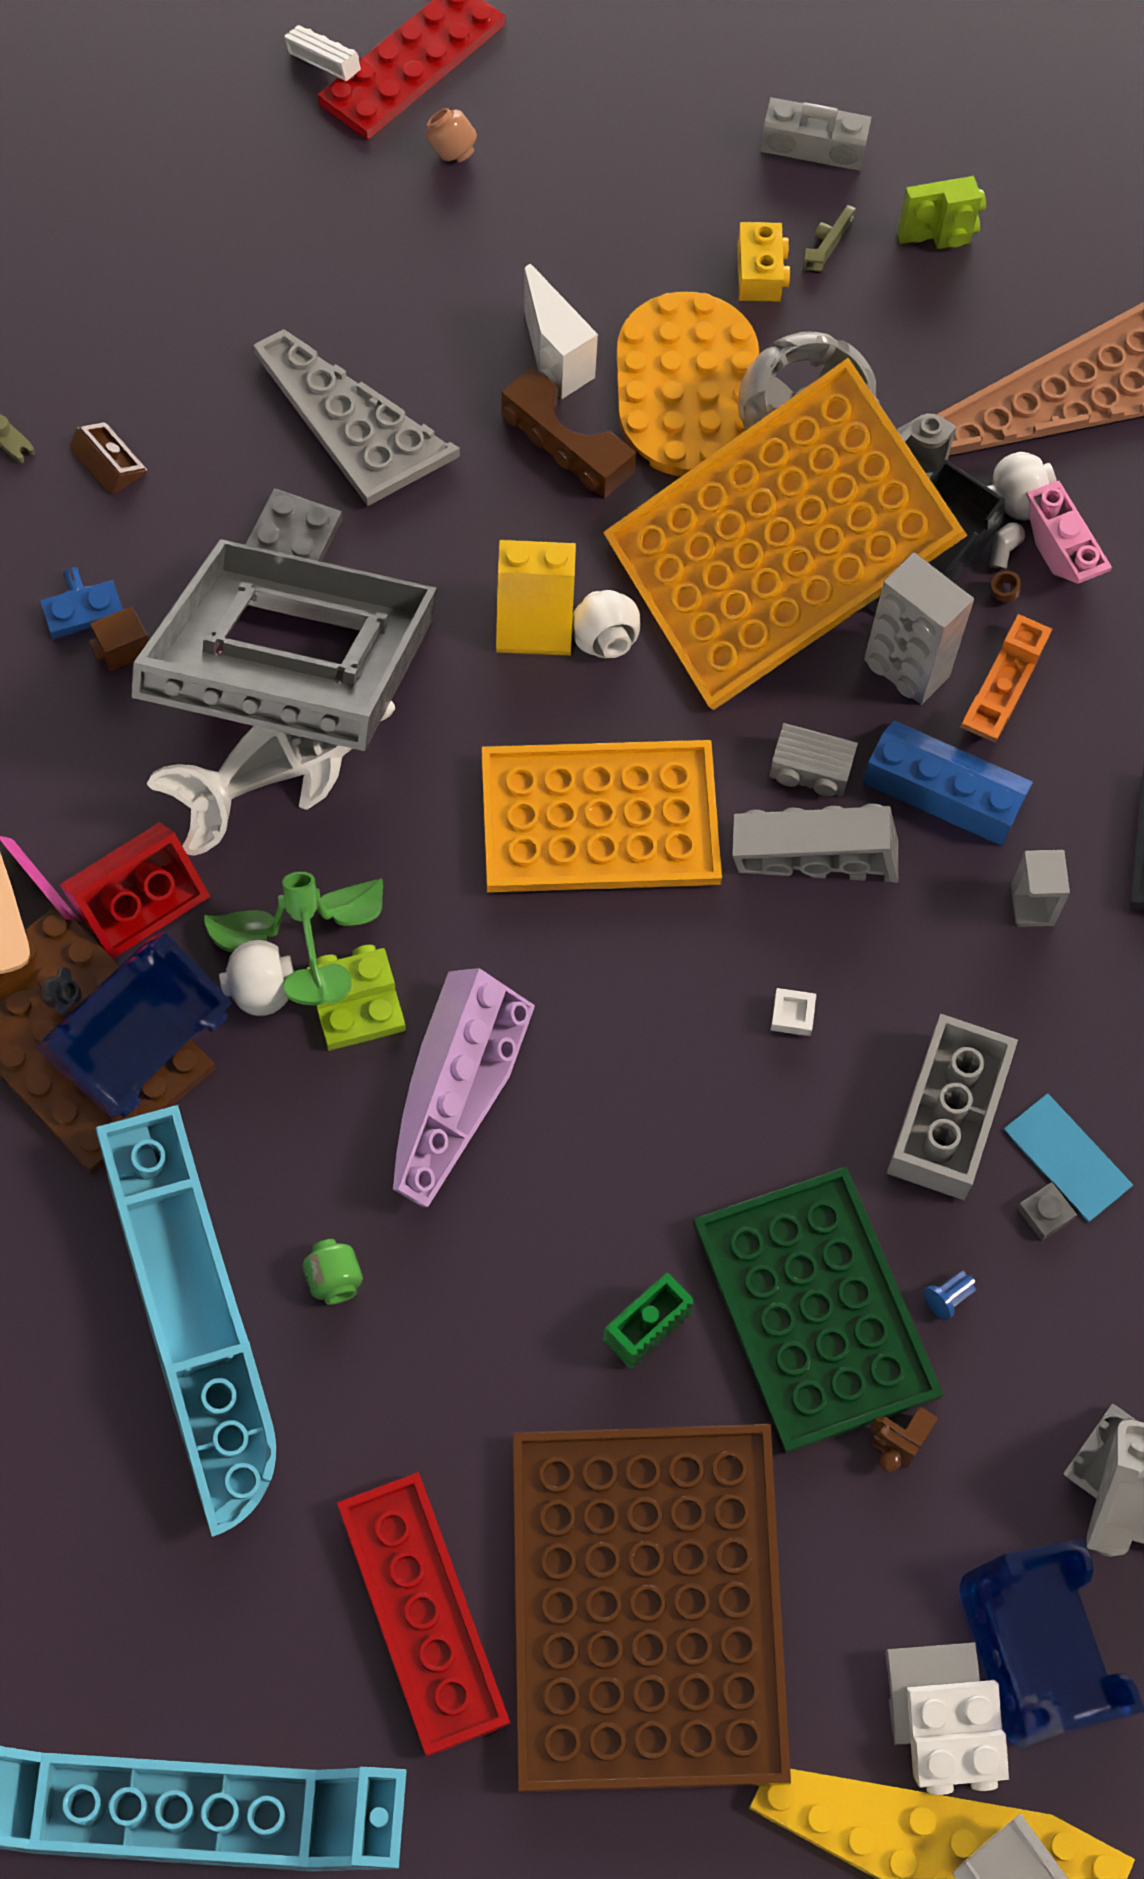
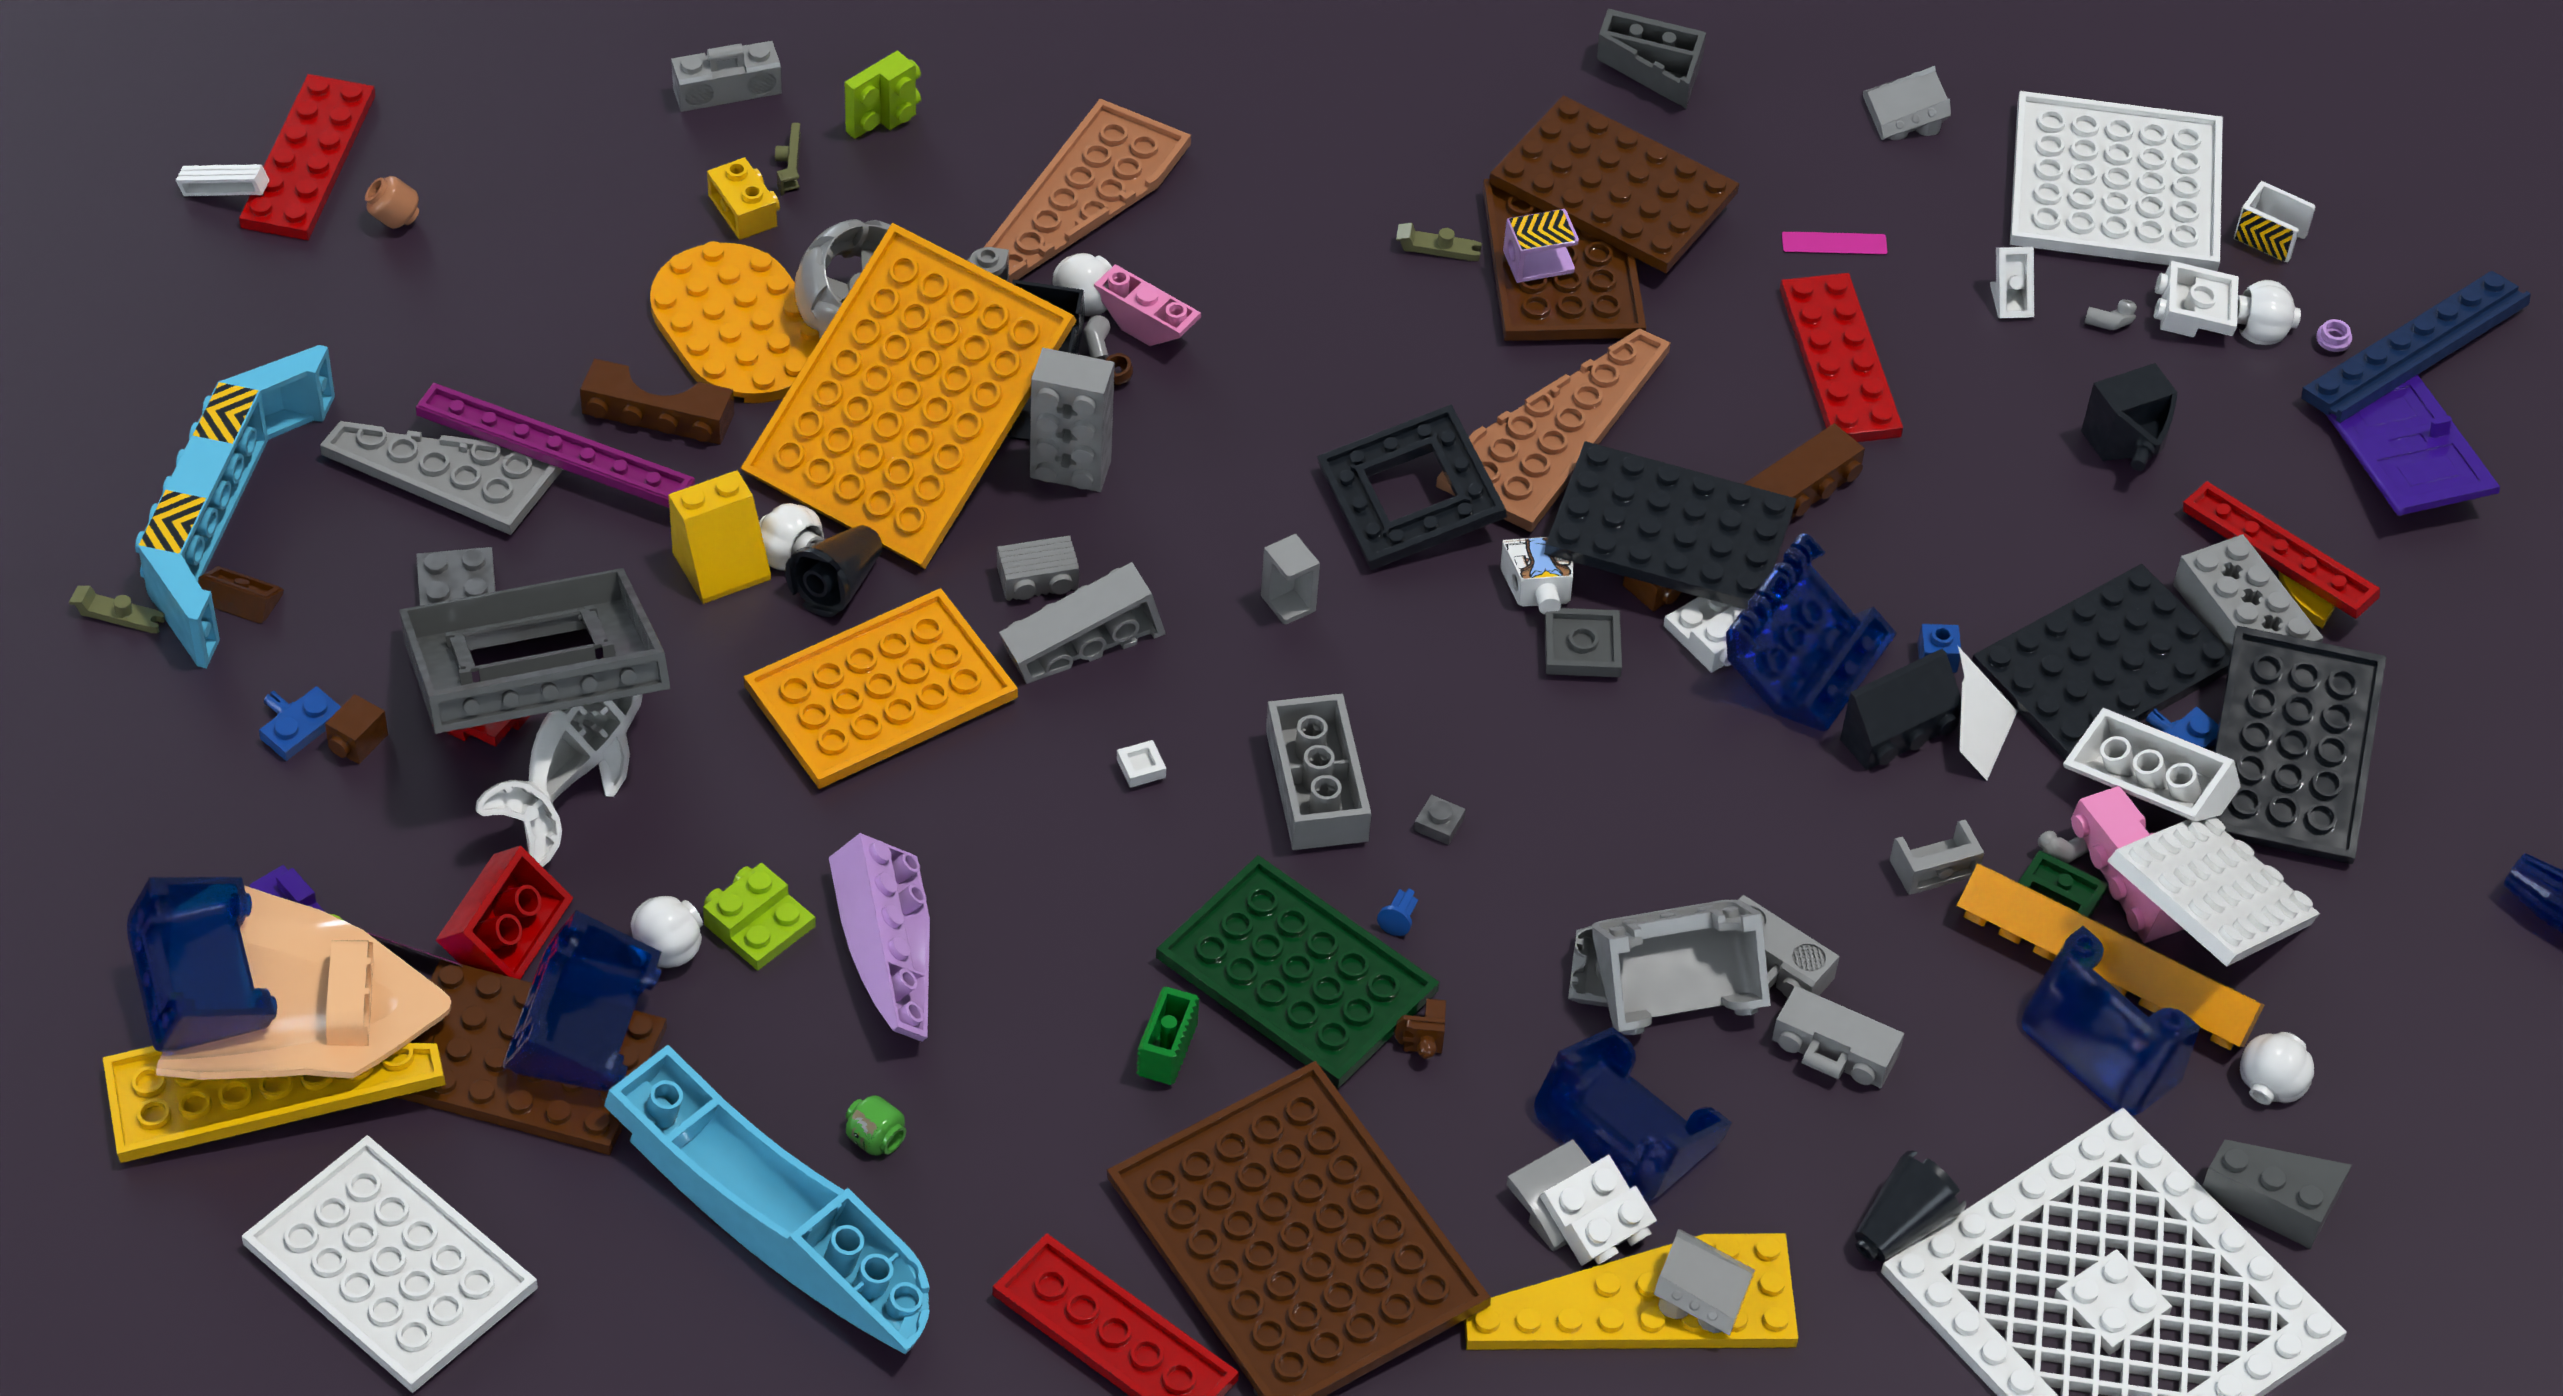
camera: 30 degrees left, 15 degrees down
(60, 991) = (497, 1015): black plate -> none
(136, 341) = (212, 478): none -> medium azure slope
(301, 899) = (674, 849): bright green plant -> none
(450, 438) = (551, 445): none -> magenta tile
(559, 336) = (598, 321): white slope -> none
(626, 675) = (833, 569): none -> black cone
(946, 782) = (1162, 540): blue slope -> none
(1007, 678) = (1162, 436): orange slope -> none
(1068, 1157) = (1432, 773): dark azure piece -> none

